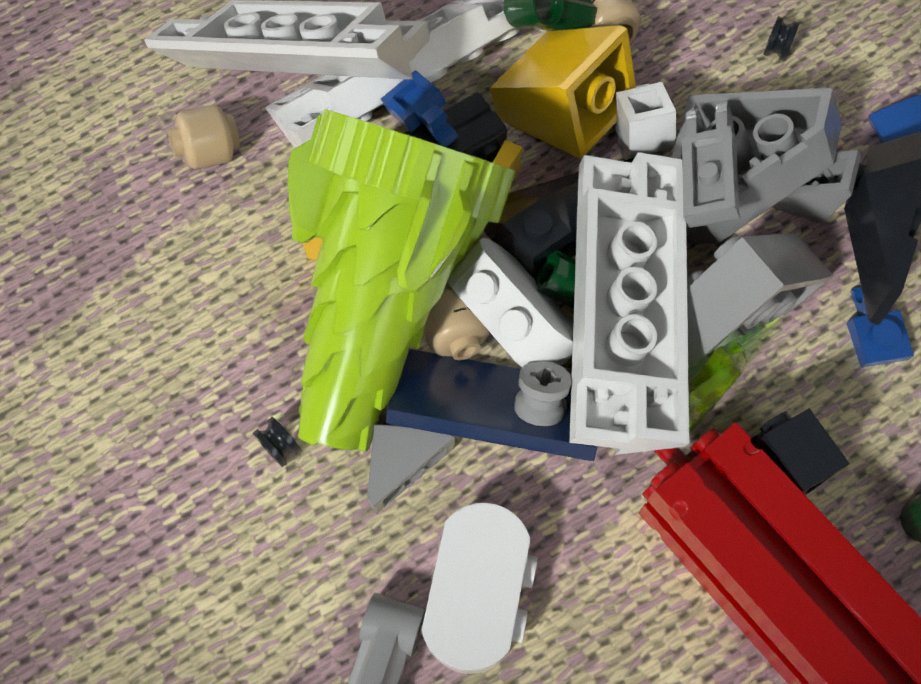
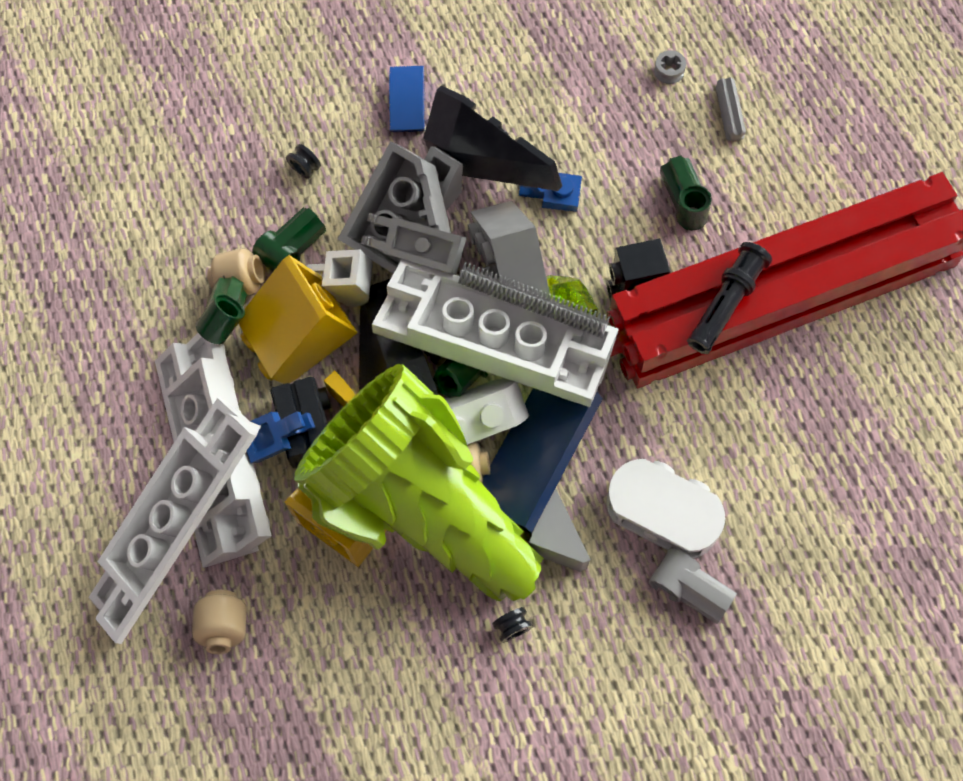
camera: 70 degrees left, 0 degrees up
(542, 393) = (544, 415): light grey wheel -> none
(660, 53) = (290, 239): none -> dark green piece
(683, 325) = (533, 301): none -> light grey axle
(818, 584) = (737, 283): none -> black pin

